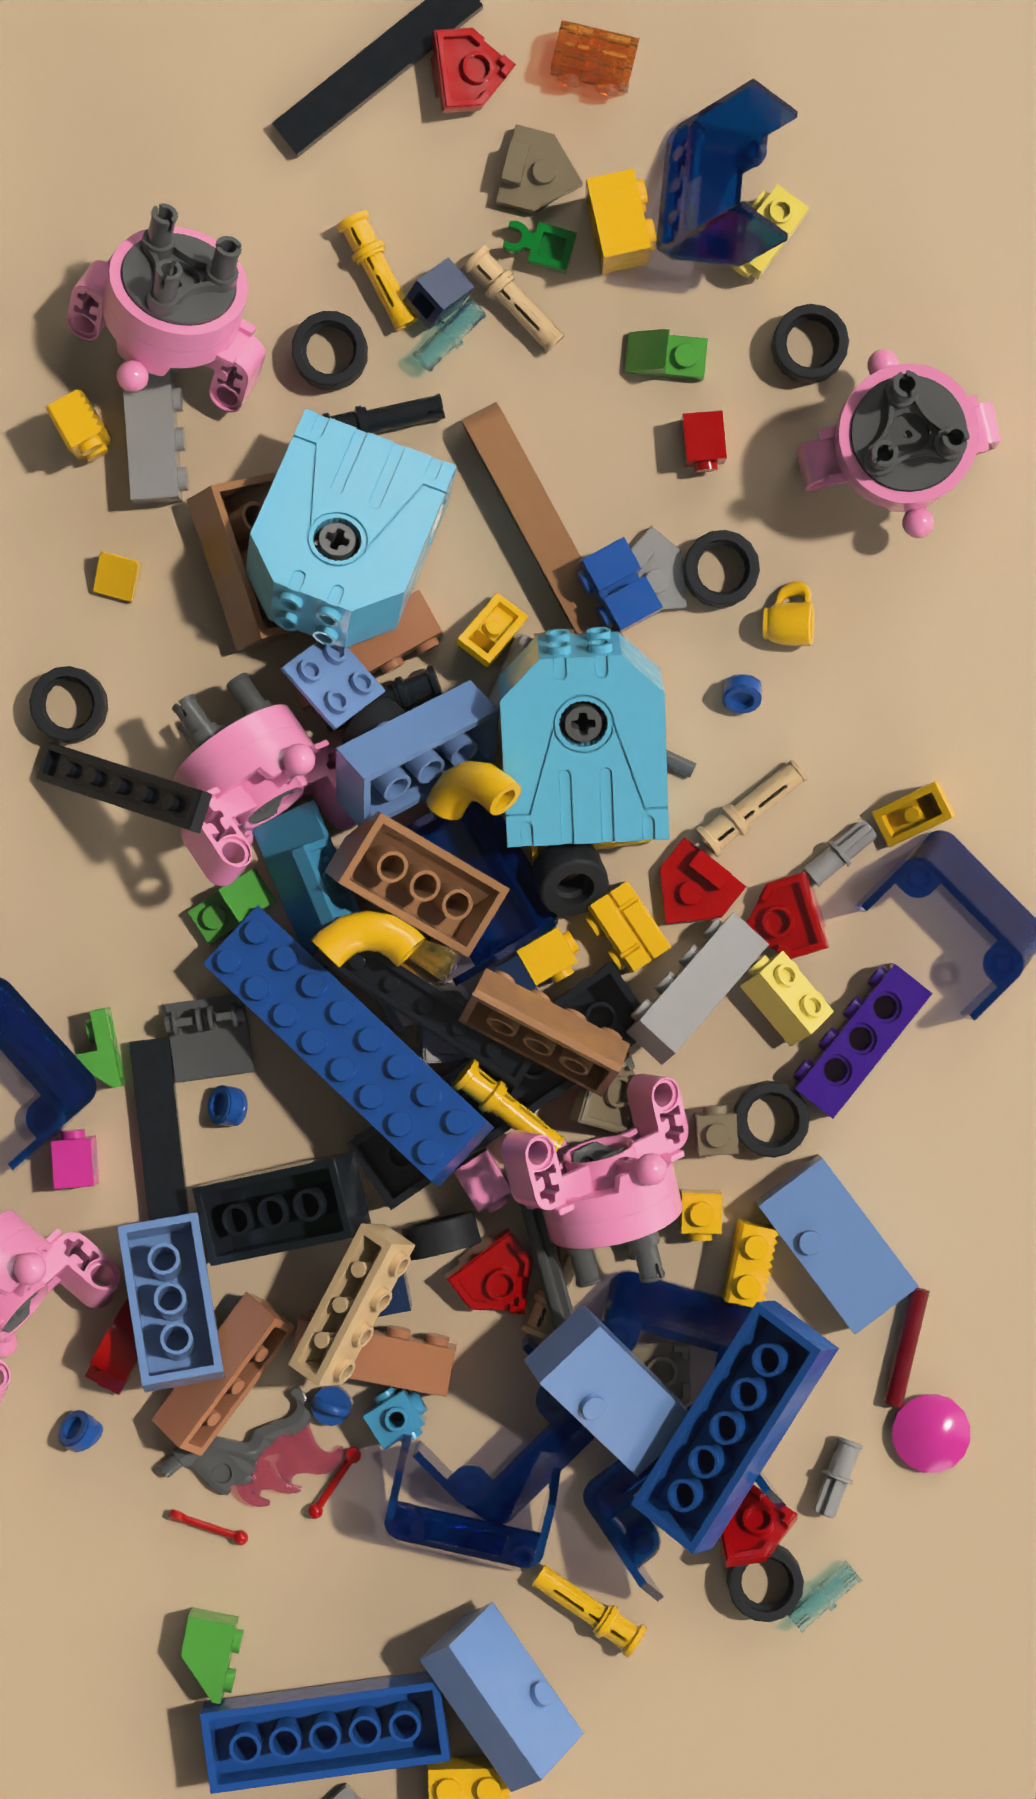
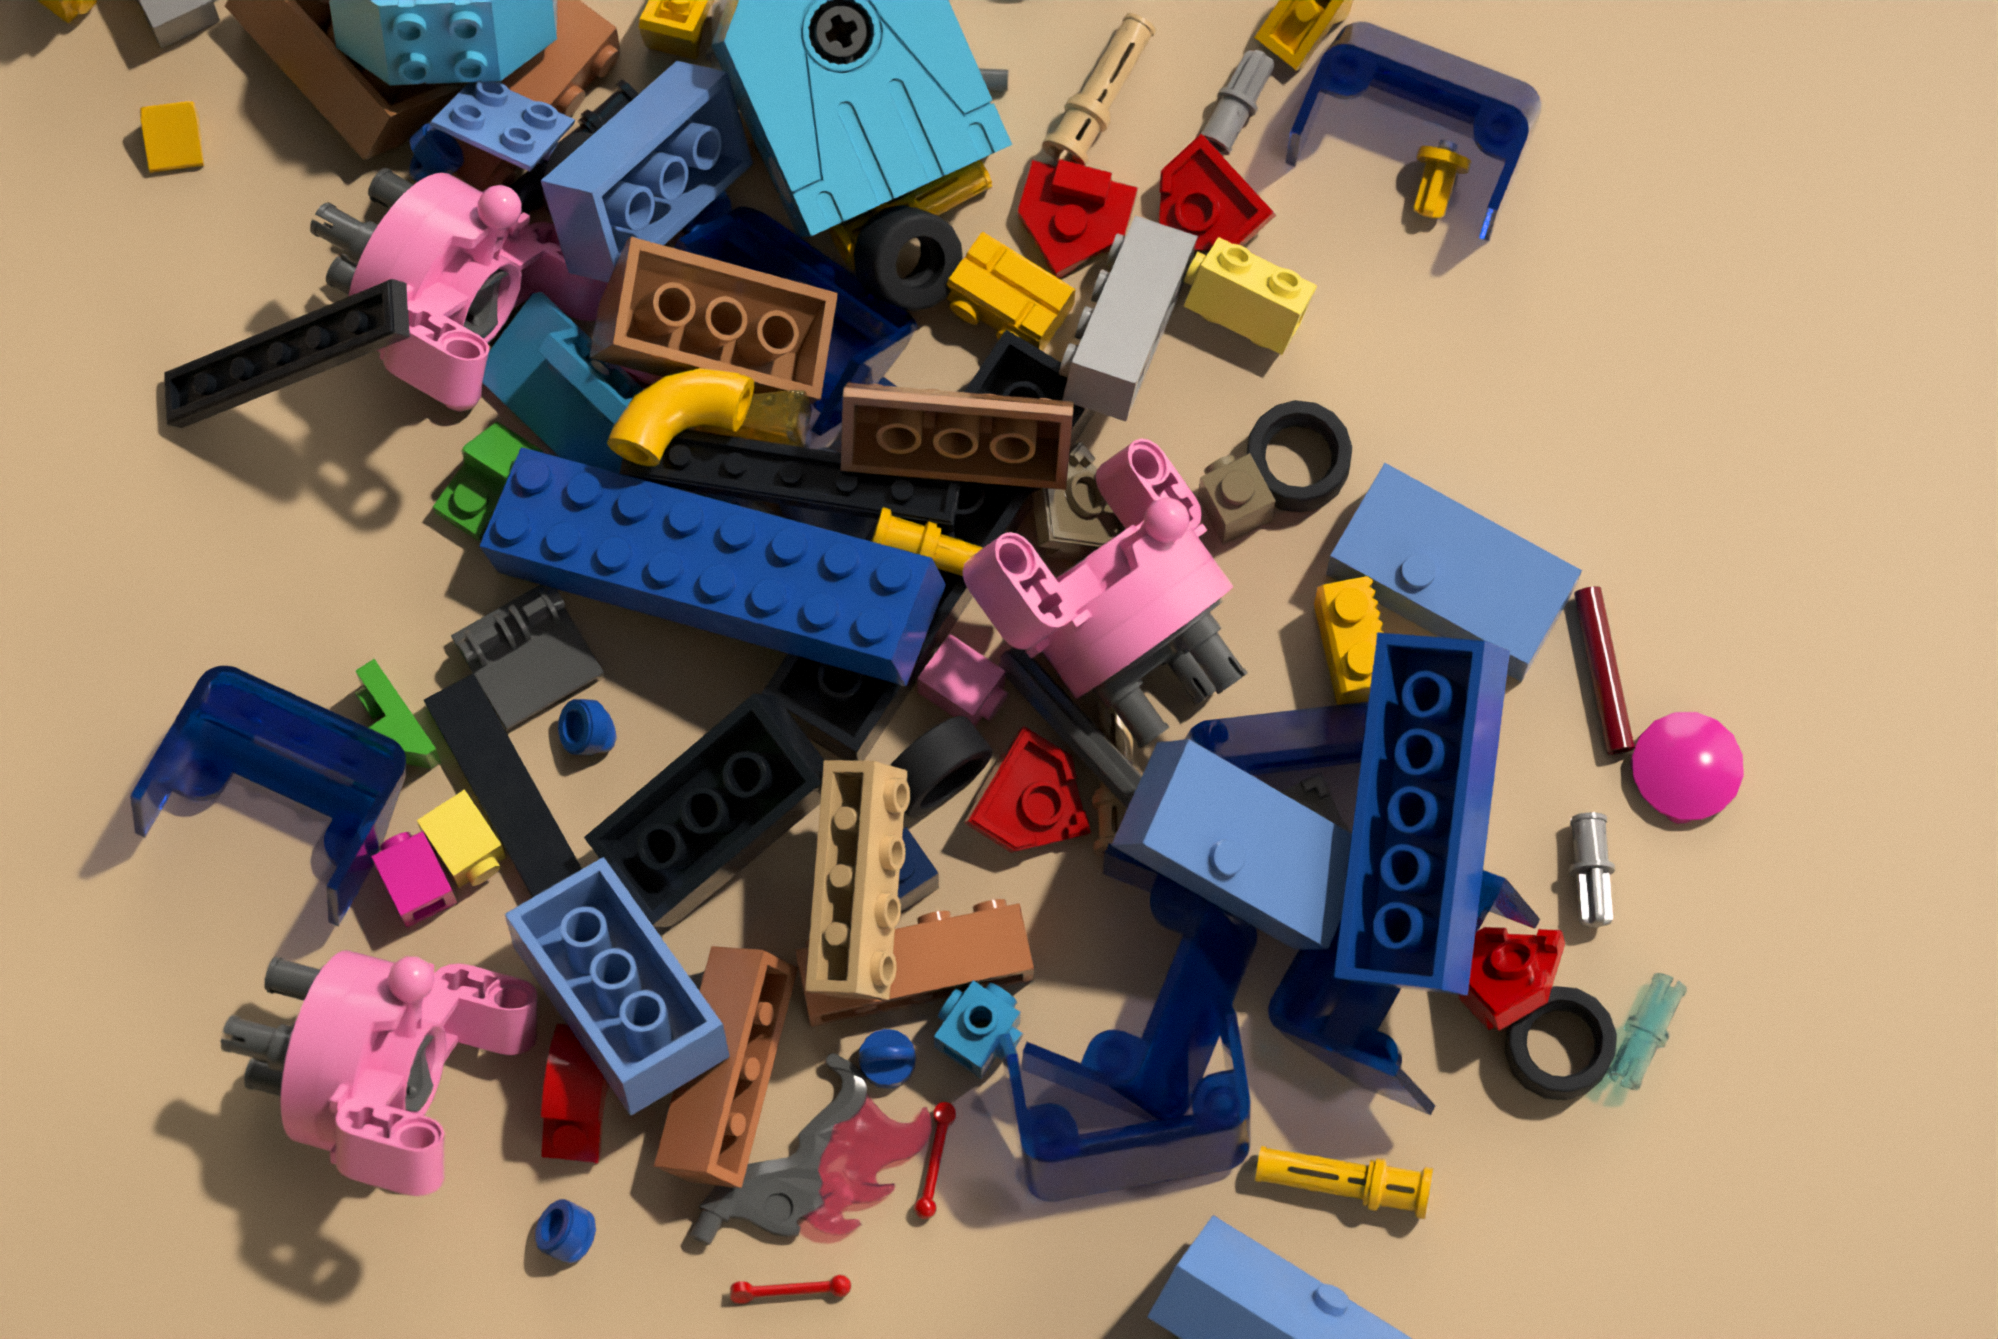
camera: 25 degrees left, 15 degrees down
(45, 685) = (155, 278): black tyre -> none
(116, 1149) = (462, 840): none -> light yellow brick
(275, 680) = (433, 153): none -> blue tile
(470, 783) = (732, 166): yellow cylinder -> none
(550, 956) = (927, 361): yellow brick -> none
(700, 1213) = (1261, 605): yellow brick -> none
(907, 999) = (1399, 234): dark purple brick -> none
(949, 965) = (1438, 177): none -> yellow piece

